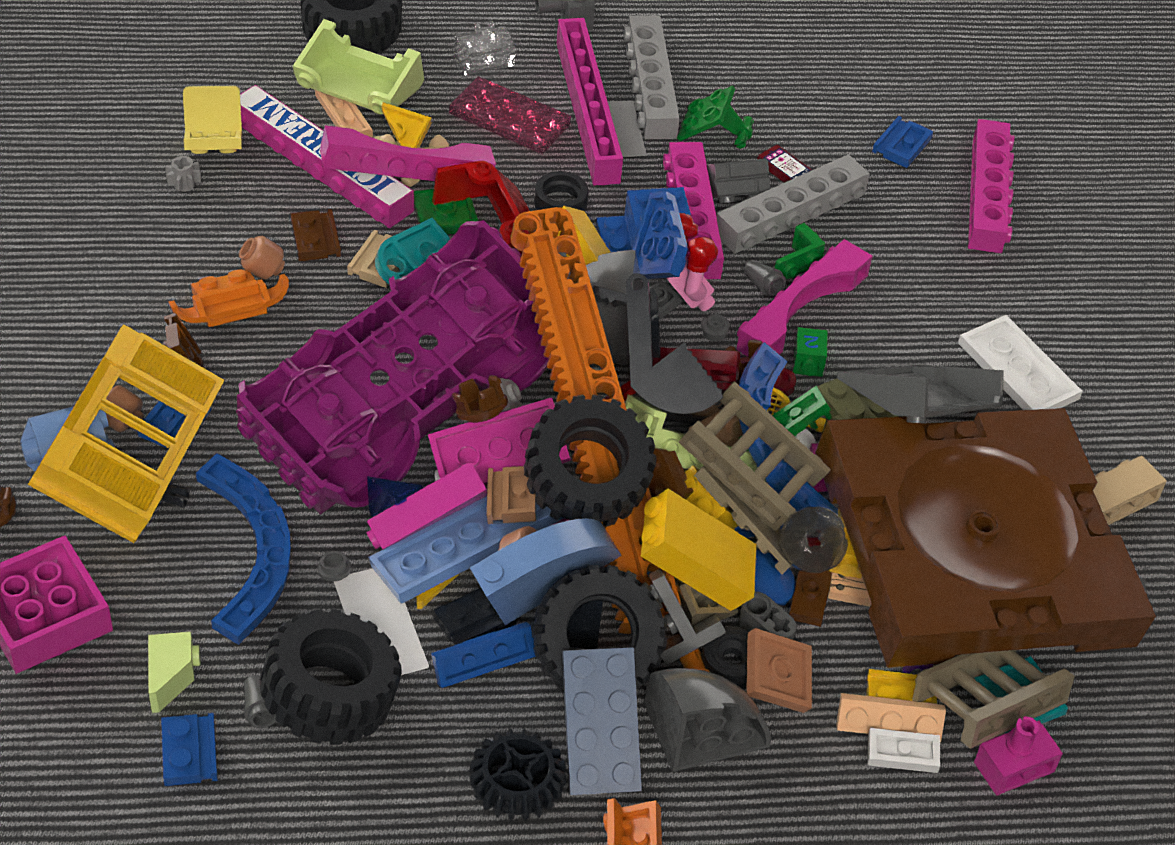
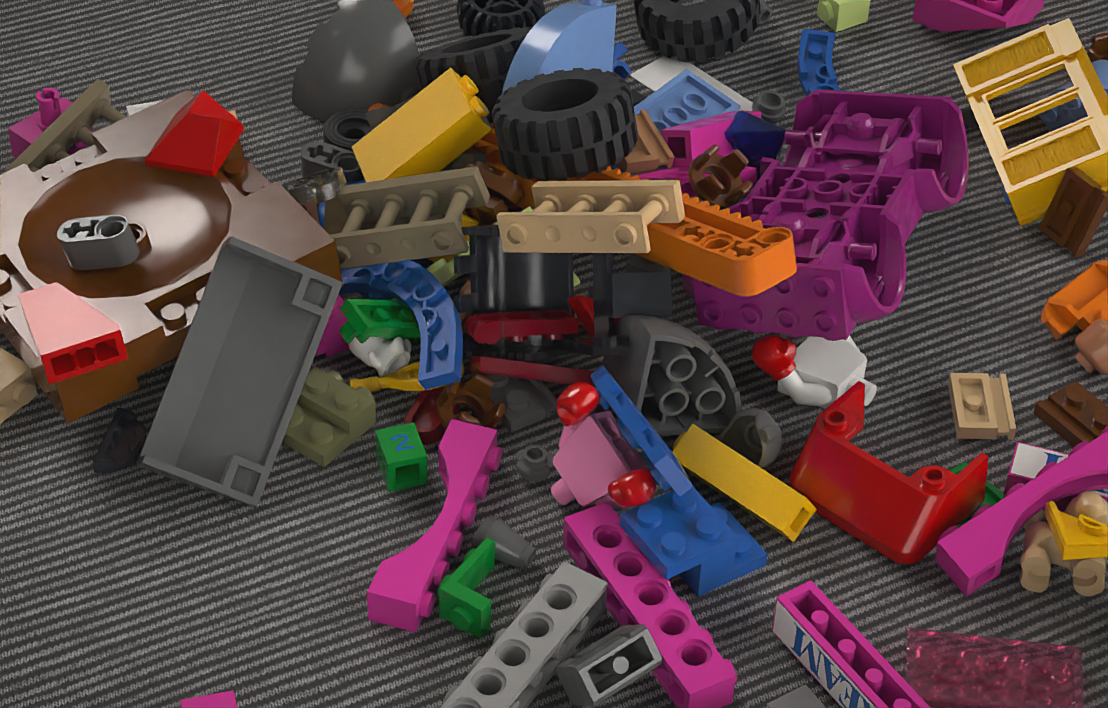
camera: 160 degrees right, 5 degrees down
(409, 249) = (933, 414): teal tile -> none
(561, 182) = (834, 545): black tyre -> none
(601, 721) = (454, 28): sand blue plate -> none
(630, 339) = (591, 216): none -> tan fence
(779, 670) = (304, 122): nougat plate -> none
(912, 563) = (196, 138): none -> red slope
(1014, 500) = (98, 242): none -> dark grey beam
(1028, 372) = (123, 533): white plate -> none
(1053, 416) = (70, 333): none -> slope

